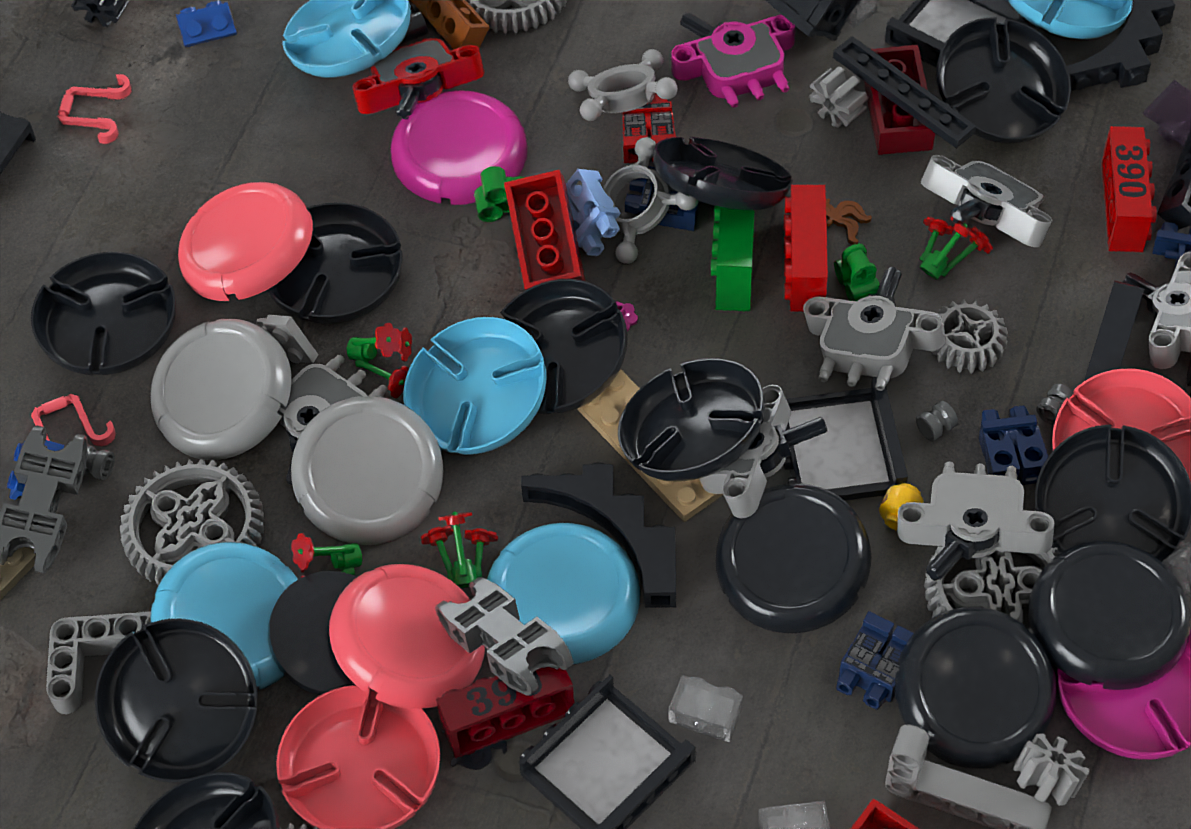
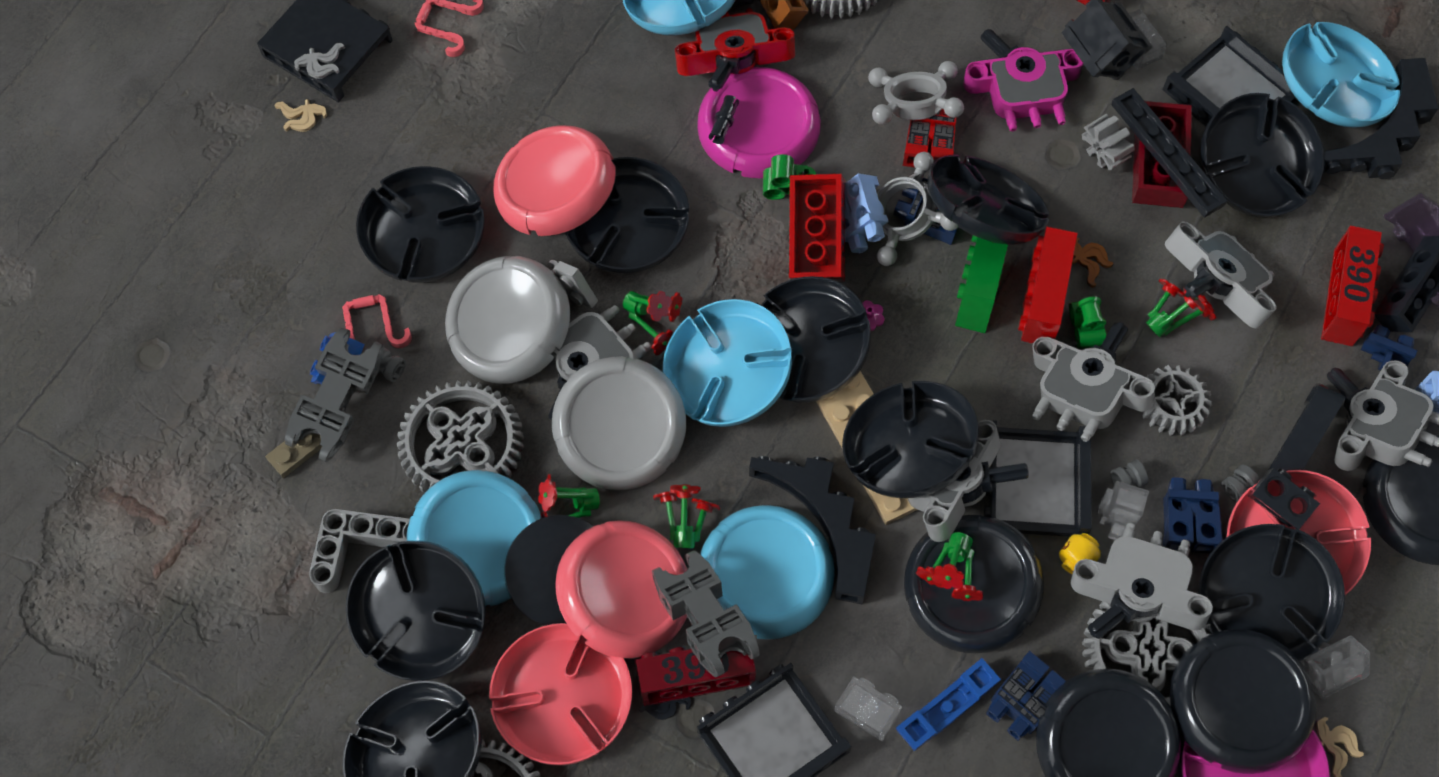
camera: 10 degrees right, 10 degrees up
(420, 147) = (723, 119): none -> black pin
(764, 538) = (948, 576): none -> plant
(795, 687) = (948, 705): none -> blue slope
(934, 446) = (1122, 506): none -> clear brick
(1100, 407) = (1280, 505): none -> black brick

